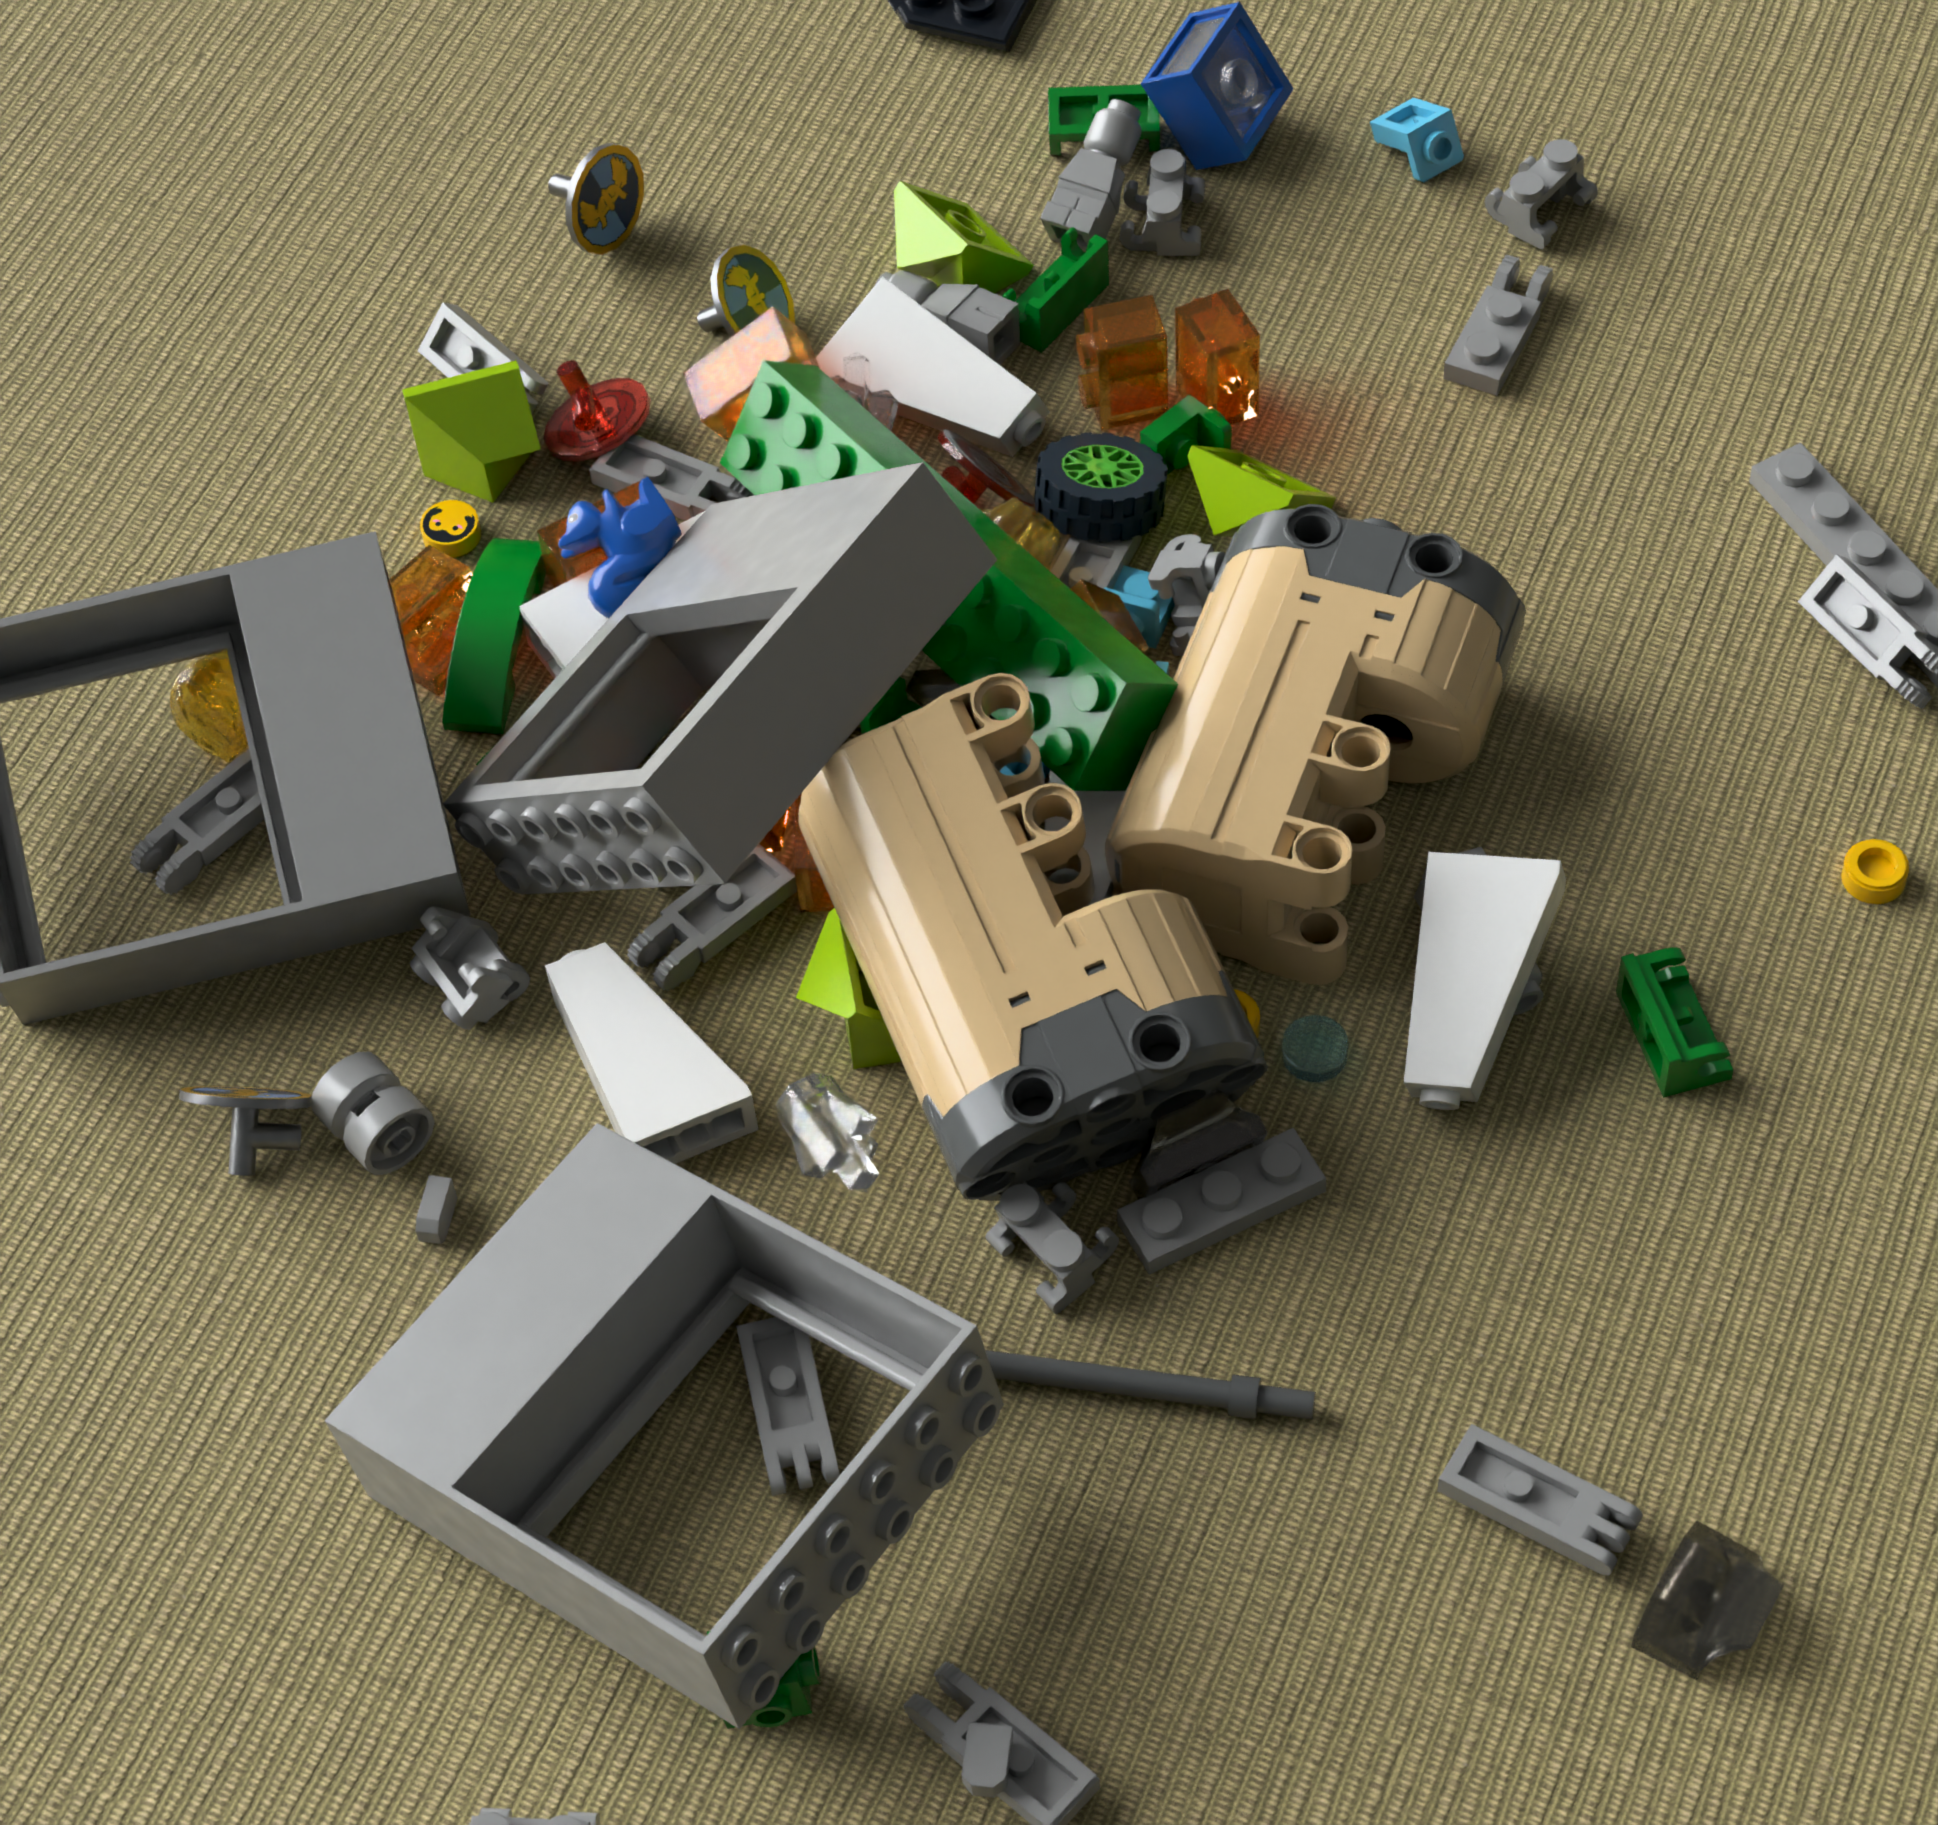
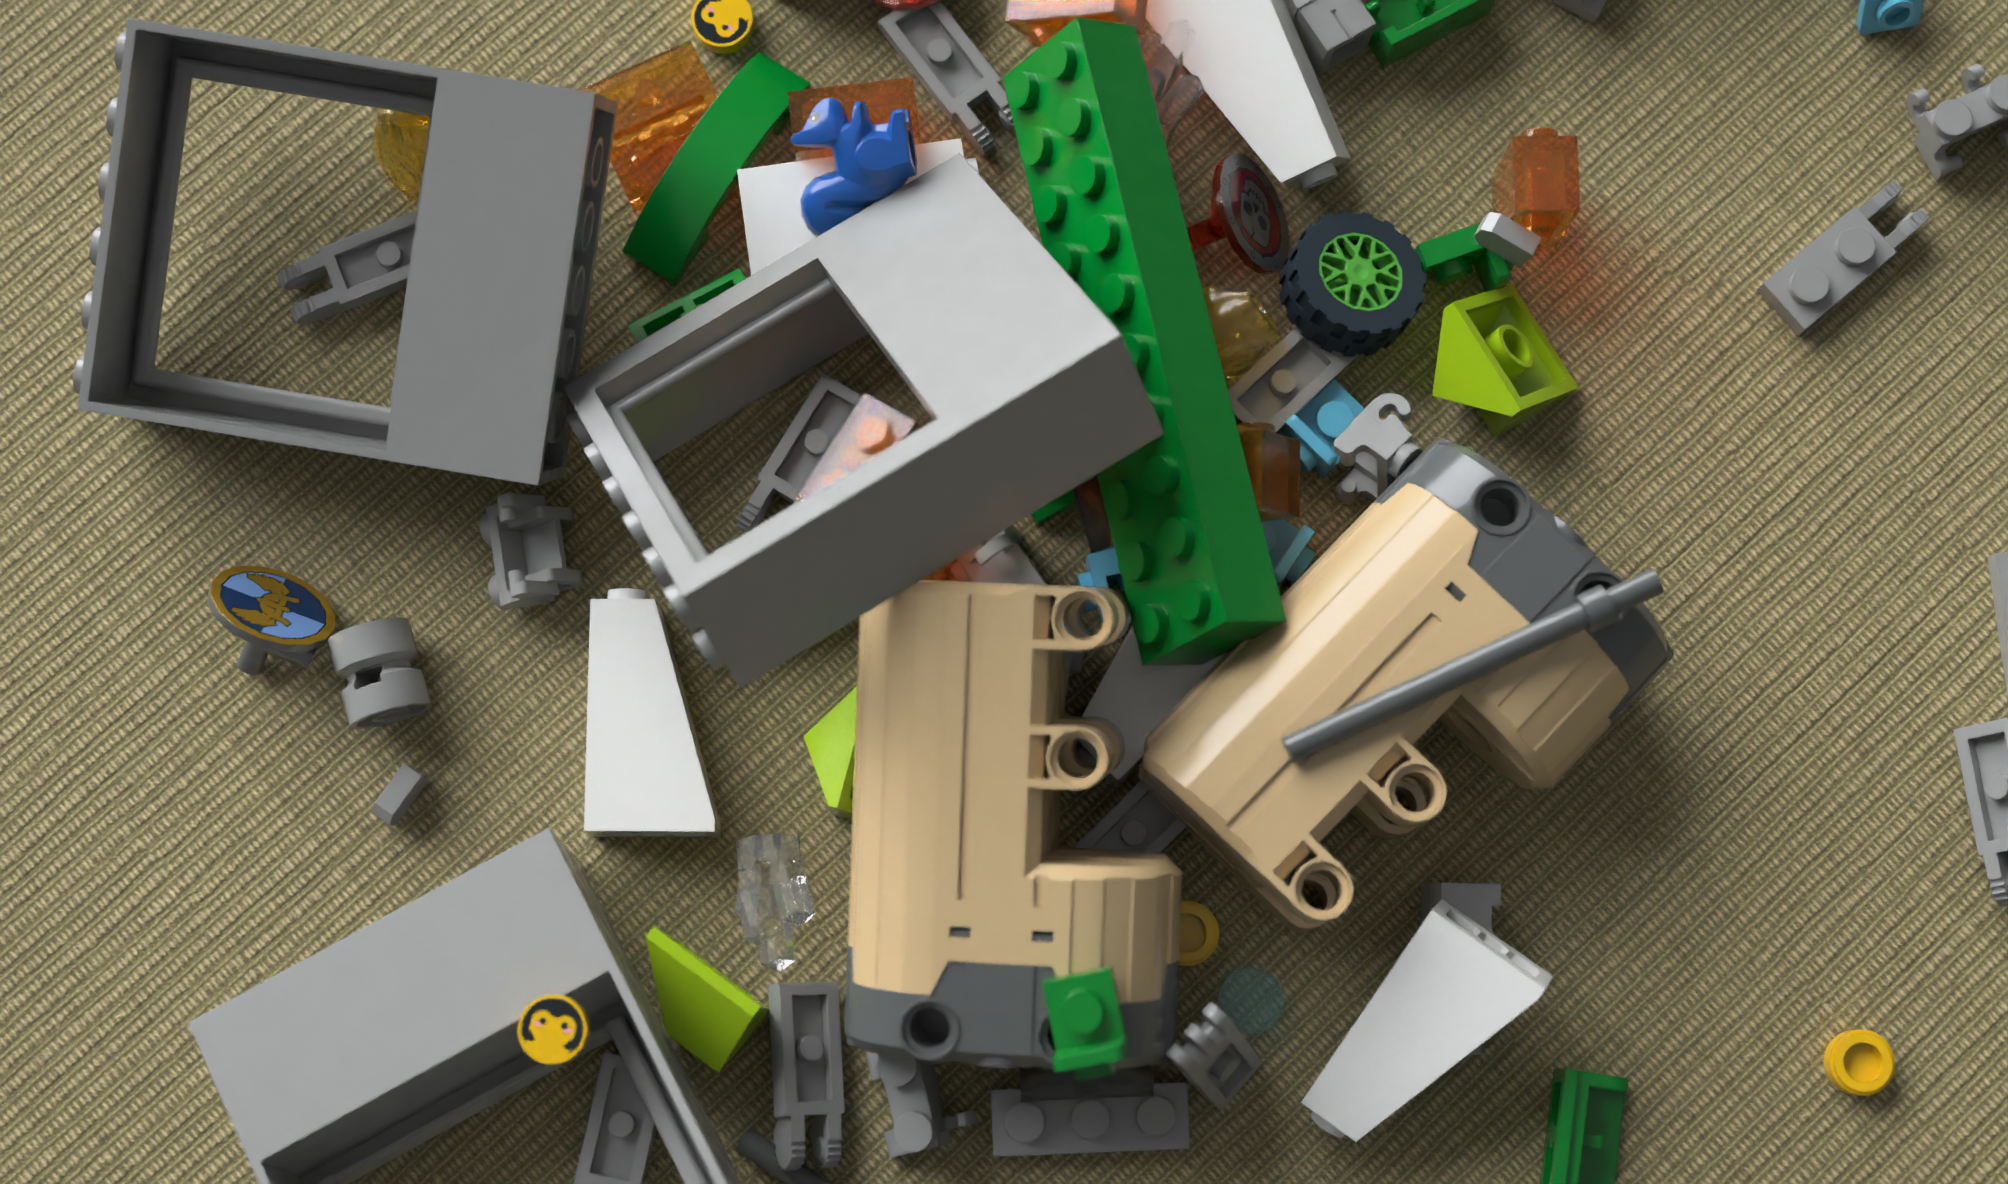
camera: 20 degrees right, 25 degrees up
(683, 1252) = (553, 1029): none -> yellow tile
(816, 1202) = (700, 1003): none -> lime slope
(936, 1257) = (806, 1071): none -> light grey hinge
(1124, 362) = (1443, 149): clear orange brick -> none
(1169, 1007) = (1086, 1022): none -> green bracket
(1212, 393) = (1507, 238): none -> light grey piece
(1305, 1068) = (1215, 1057): none -> light grey hinge
(1428, 560) = (1590, 611): none -> dark grey bar

